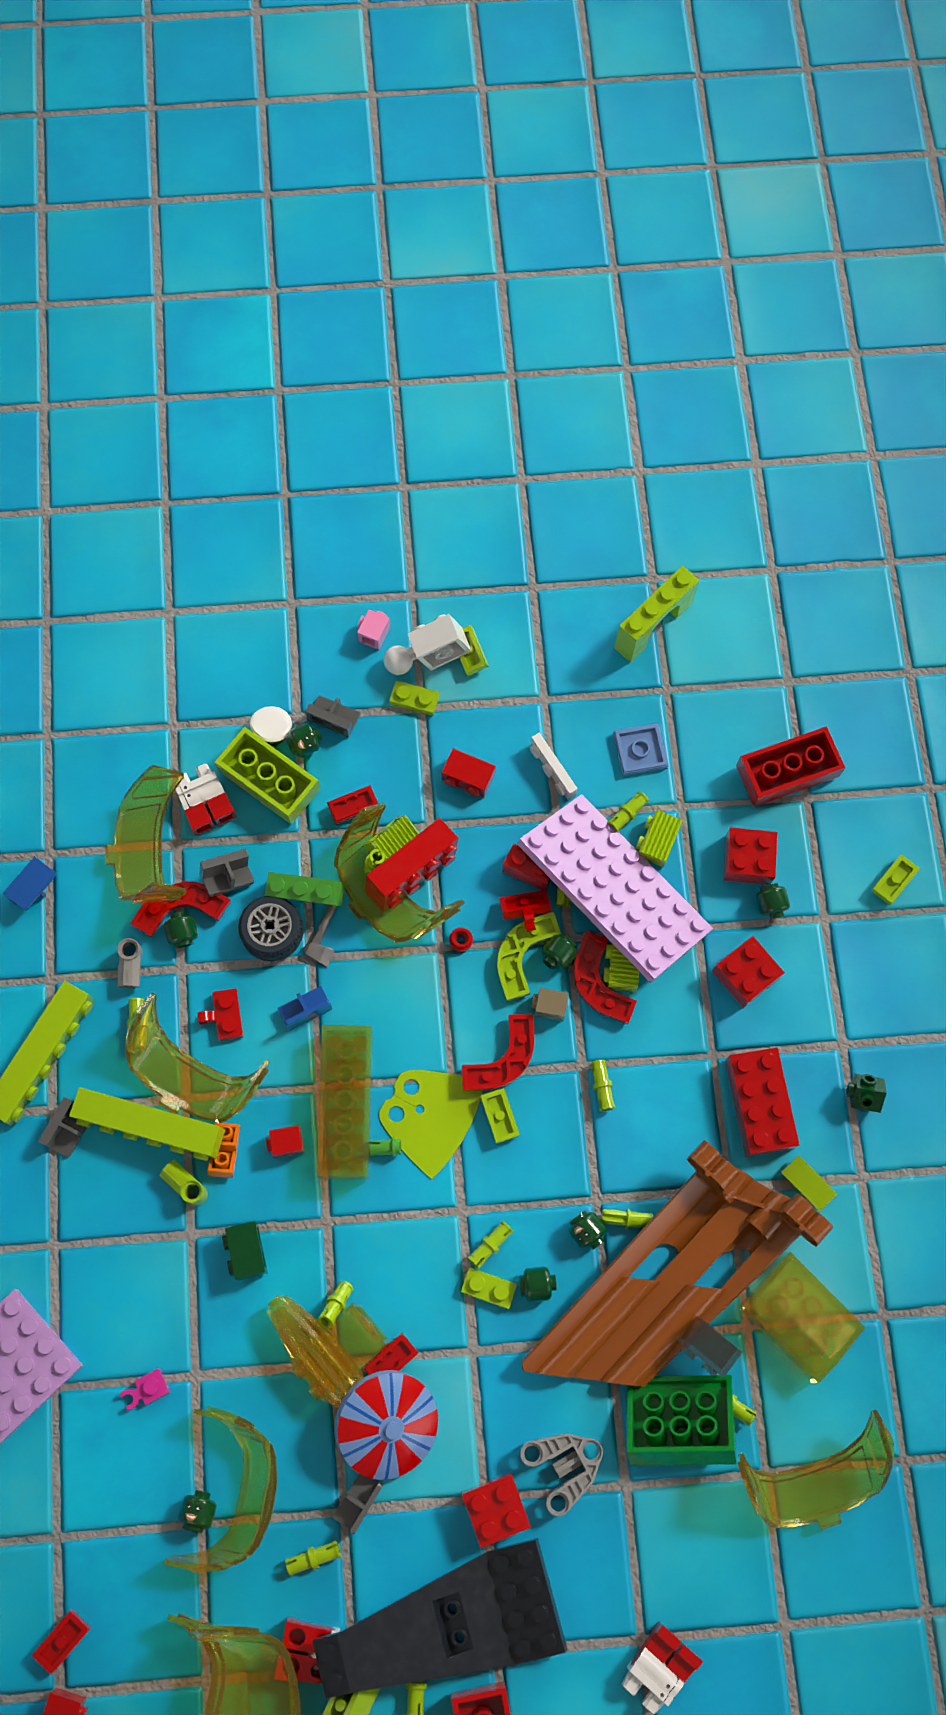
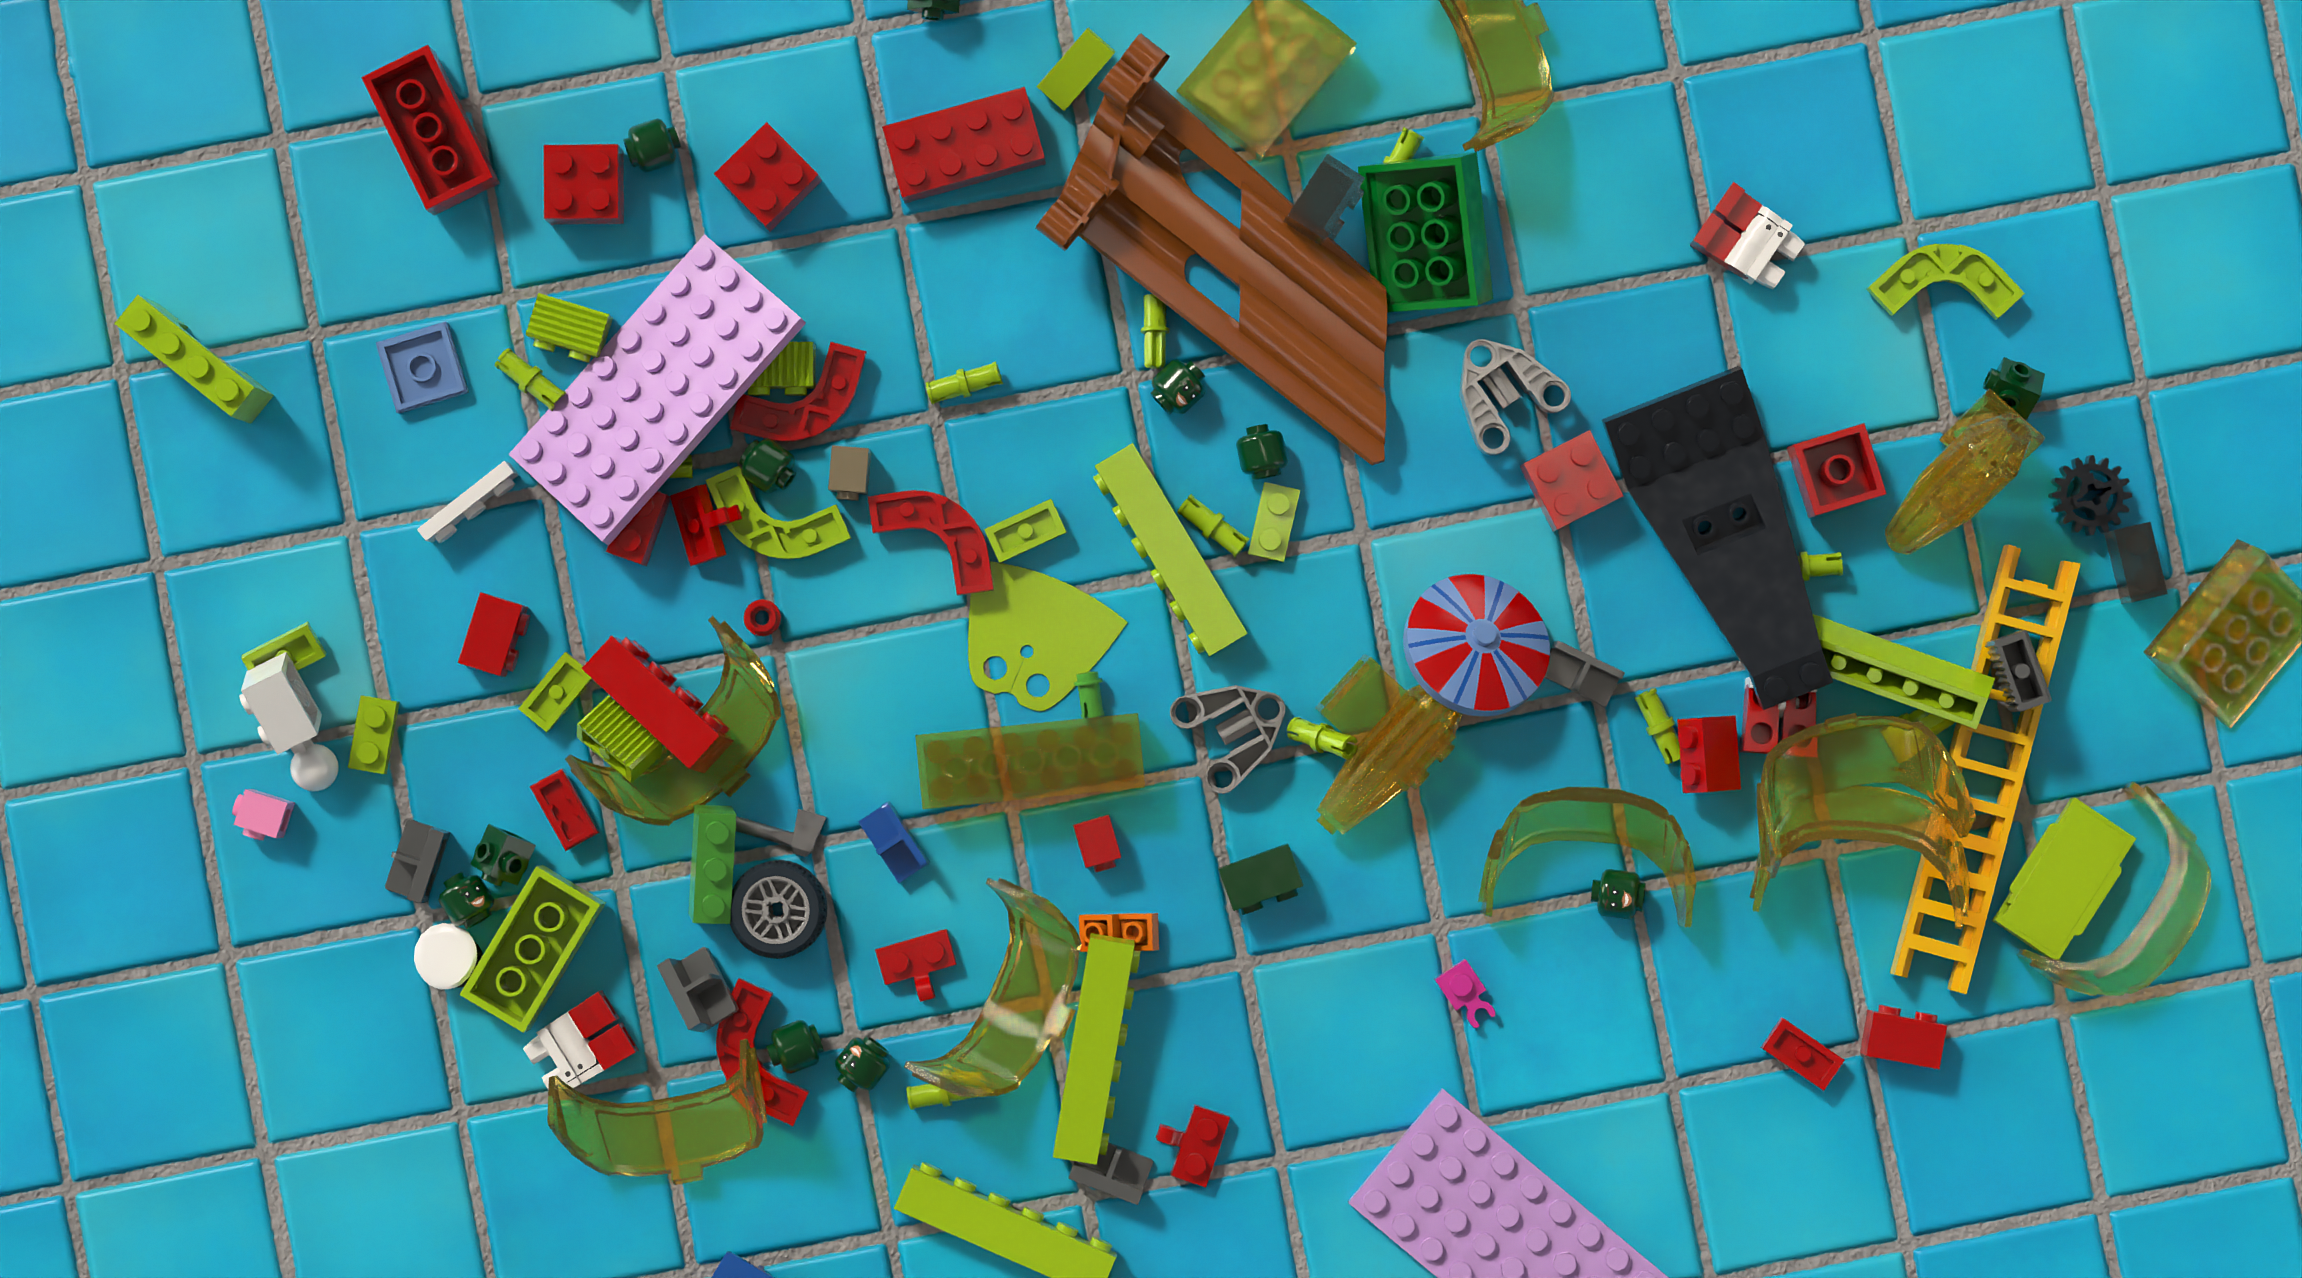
camera: 90 degrees left, 15 degrees up
(73, 1187) = (1196, 1145): none -> red plate
(129, 966) = (860, 1115): light grey piece -> none
(162, 971) = (862, 1064): none -> dark green head
(183, 1182) = (1172, 985): lime piece -> none
(287, 1593) = (1709, 754): none -> red brick
(328, 763) = (502, 856): none -> dark green brick
(330, 1251) = (1248, 755): none -> light grey connector
(373, 860) = (660, 754): lime pin -> none
(393, 1357) = (1385, 647): red plate -> none
(426, 805) = (556, 692): none -> lime plate
(475, 1213) = (1170, 550): none -> lime brick

